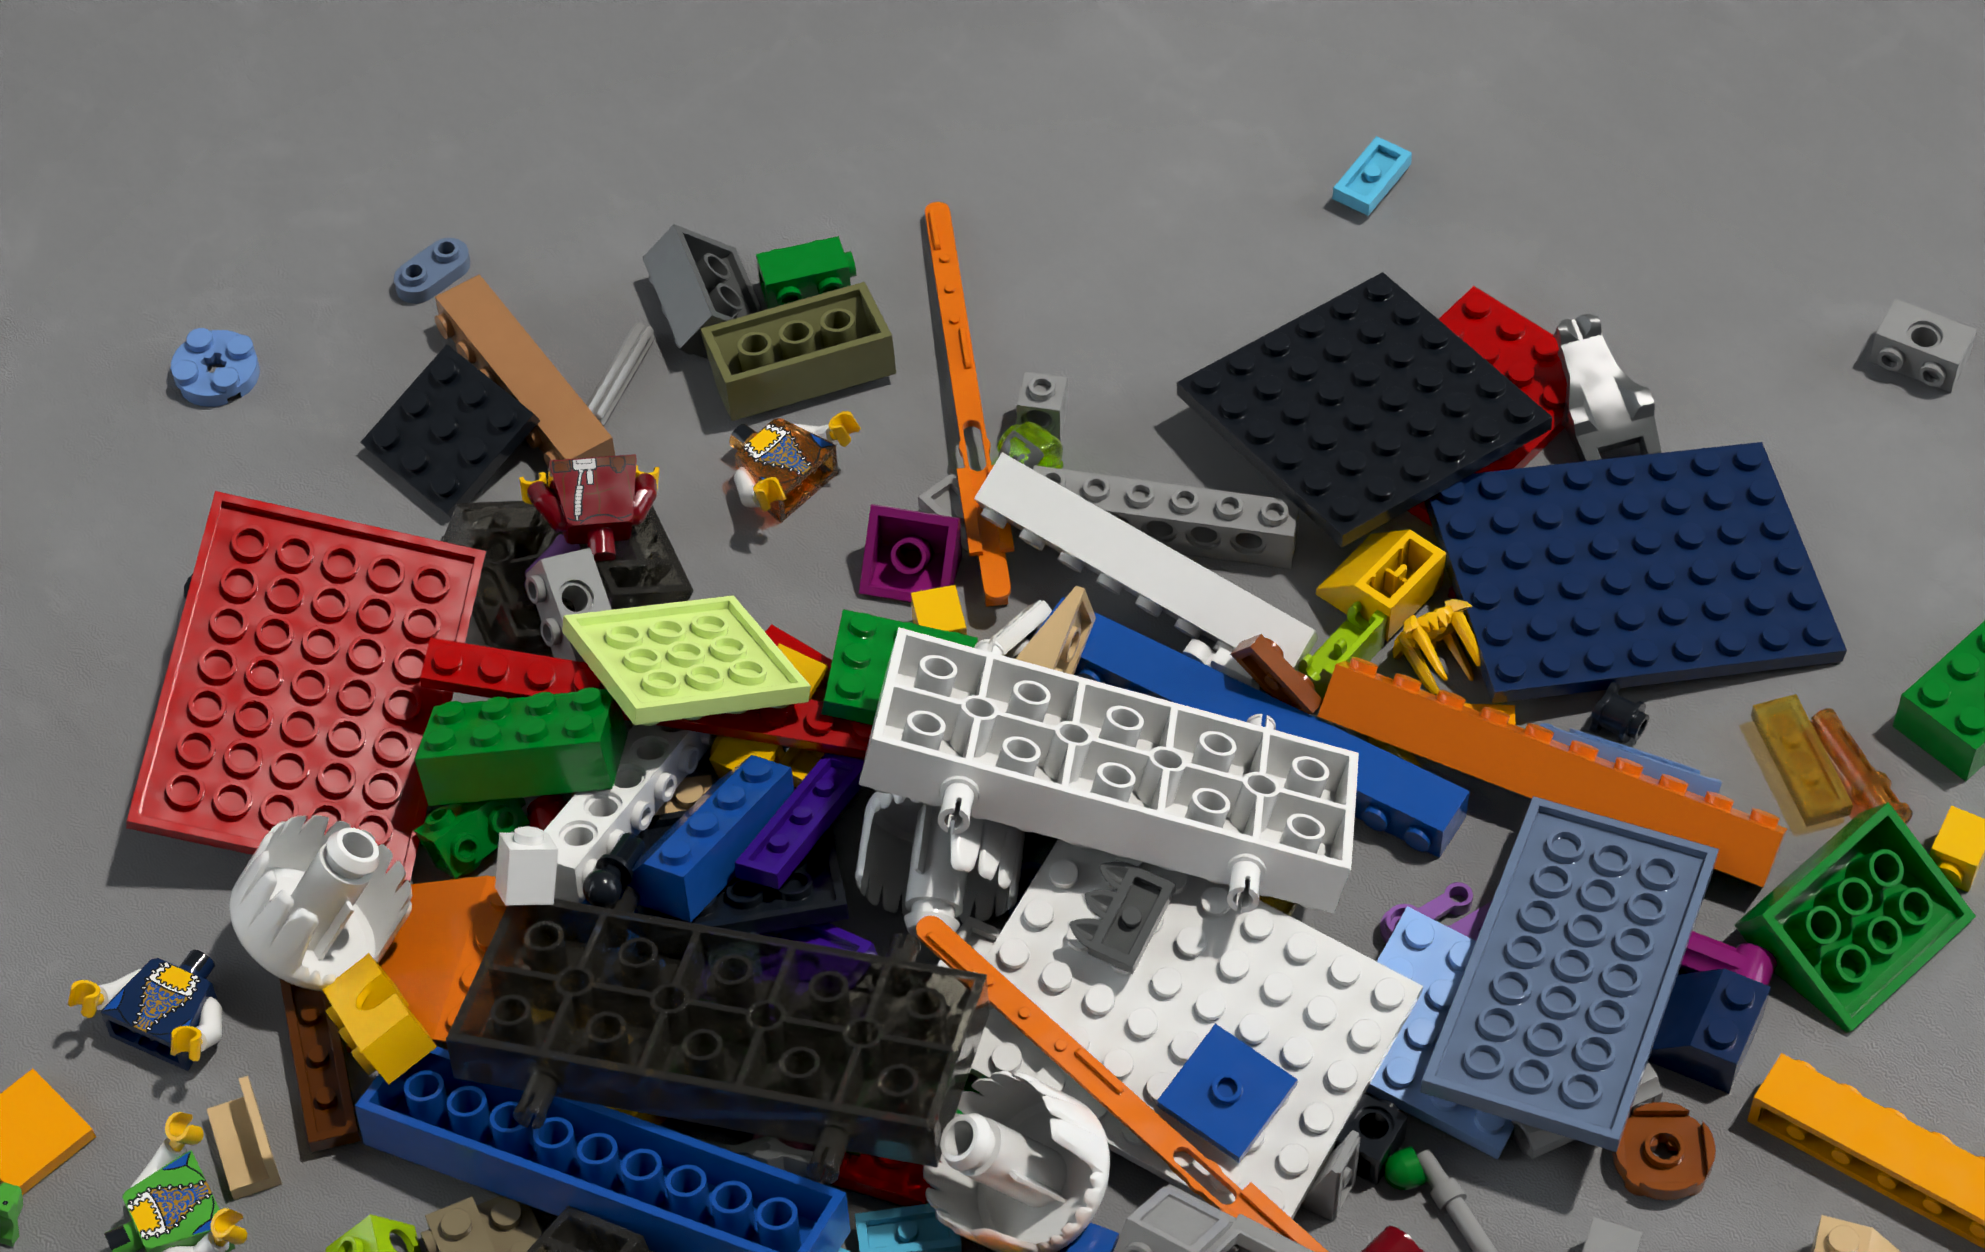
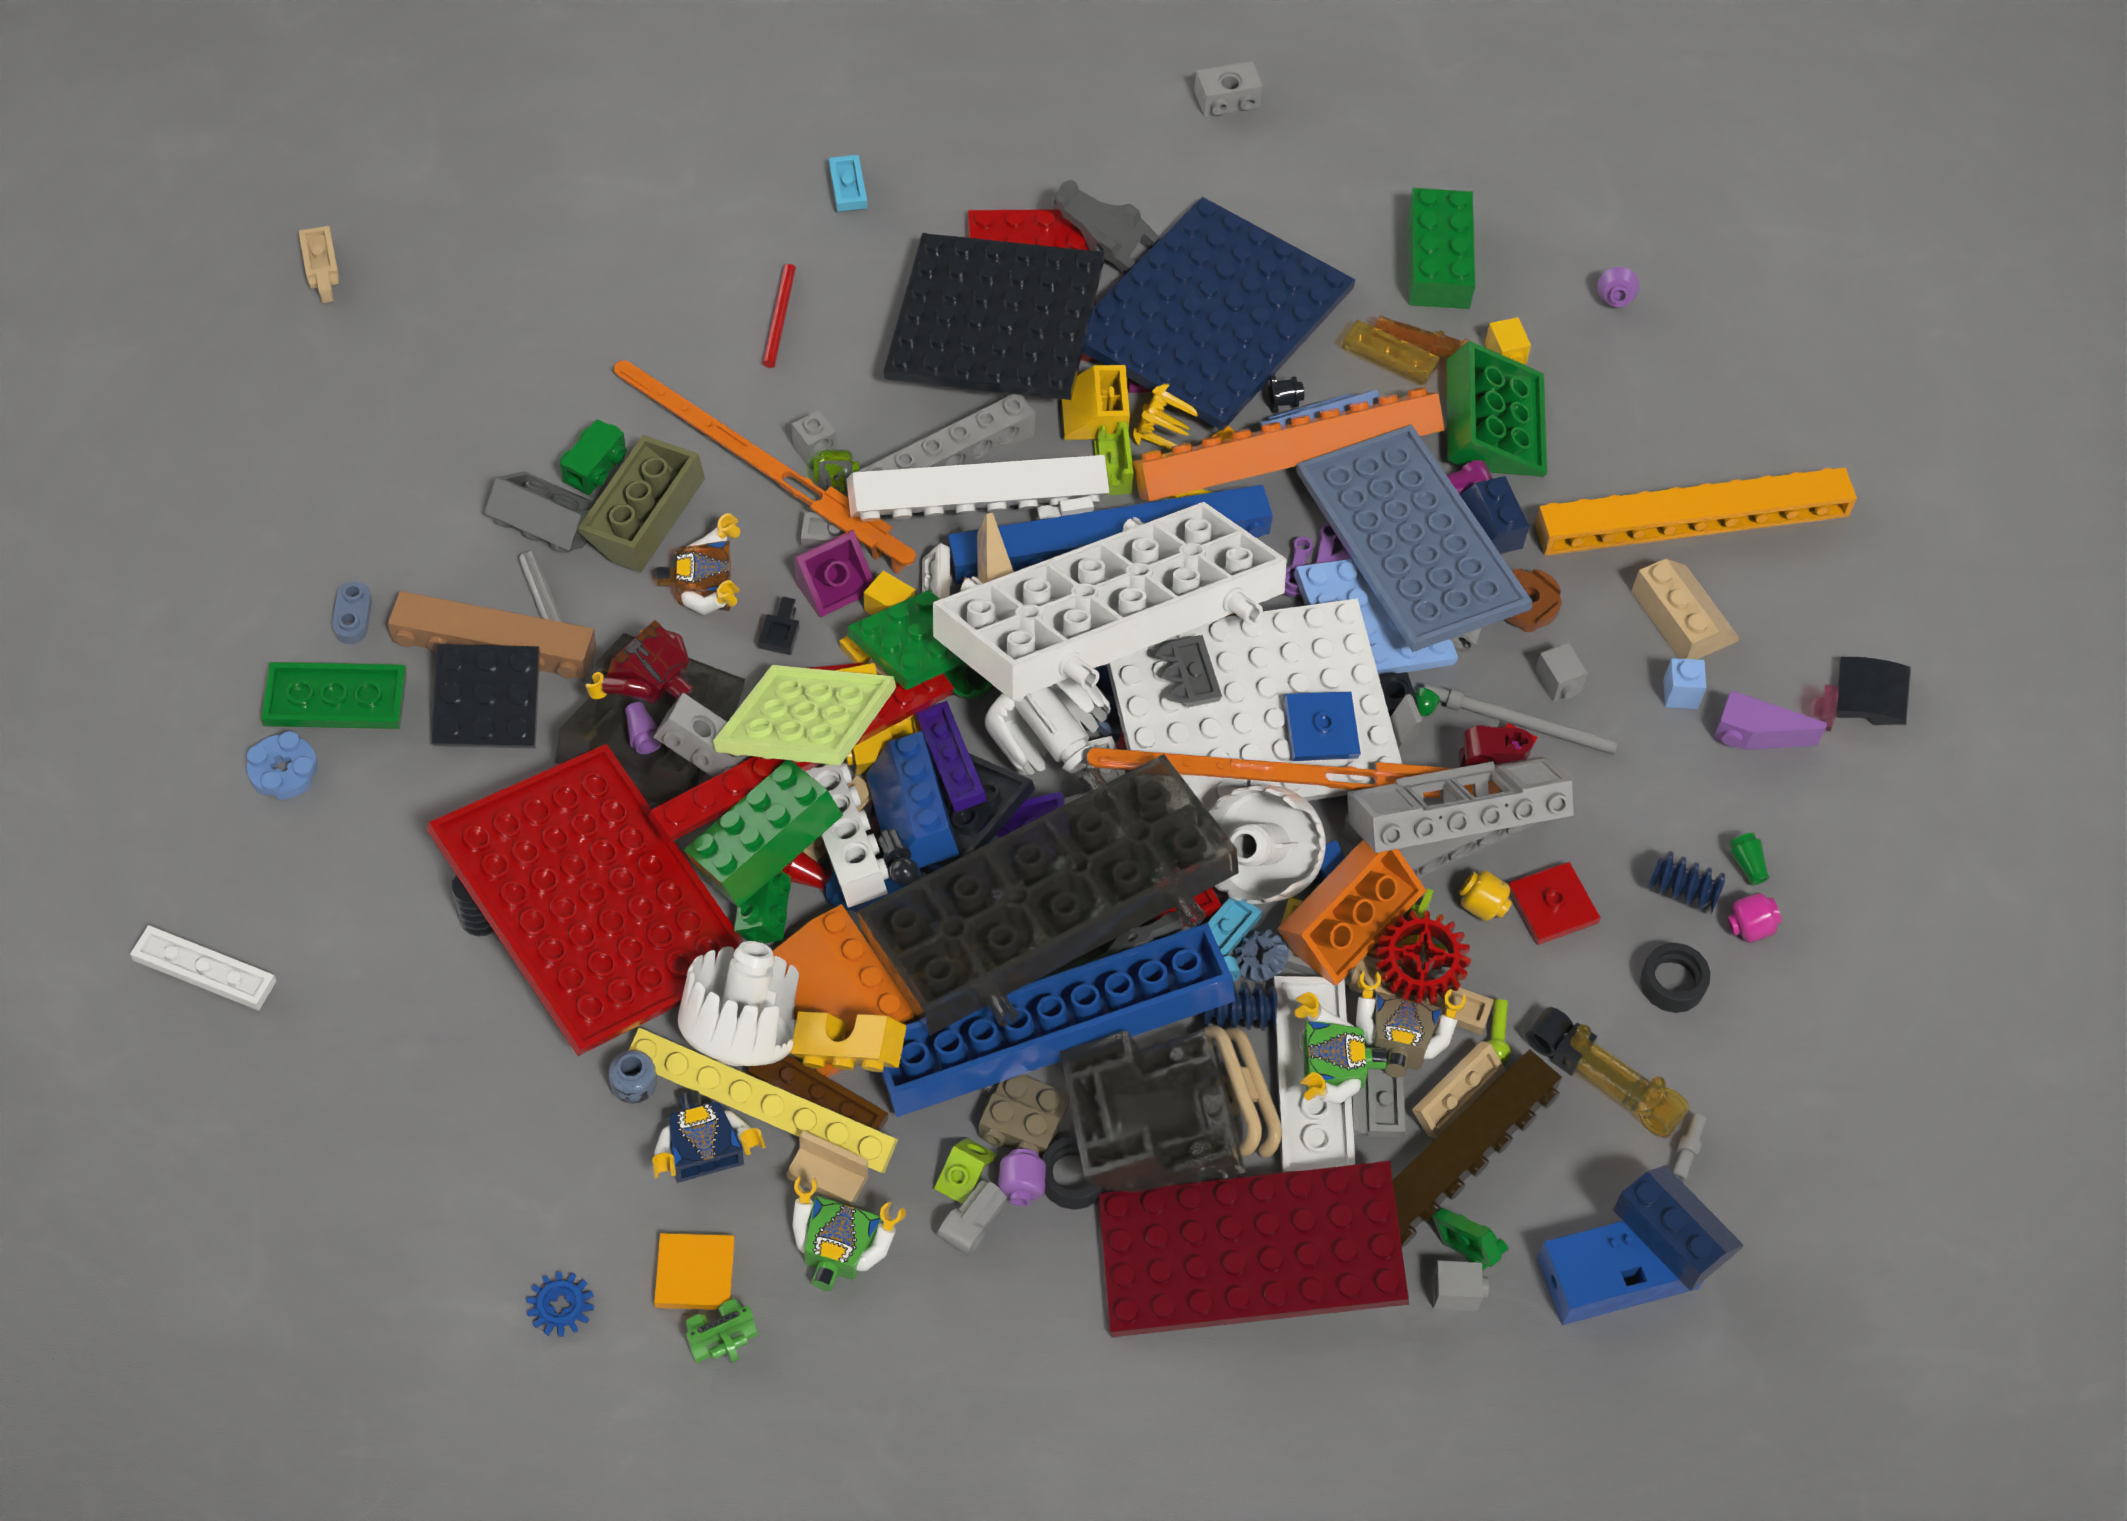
camera: 50 degrees left, 5 degrees up
(170, 895) = (632, 1076): none -> sand blue head
(262, 1033) = (763, 1099): none -> light yellow plate
(328, 335) = (334, 695): none -> green plate
(526, 867) = (860, 889): white brick -> none
(799, 576) = (781, 630): none -> black plate
(1153, 264) = (779, 316): none -> red bar
(1268, 667) = (1108, 493): dark orange plate -> none

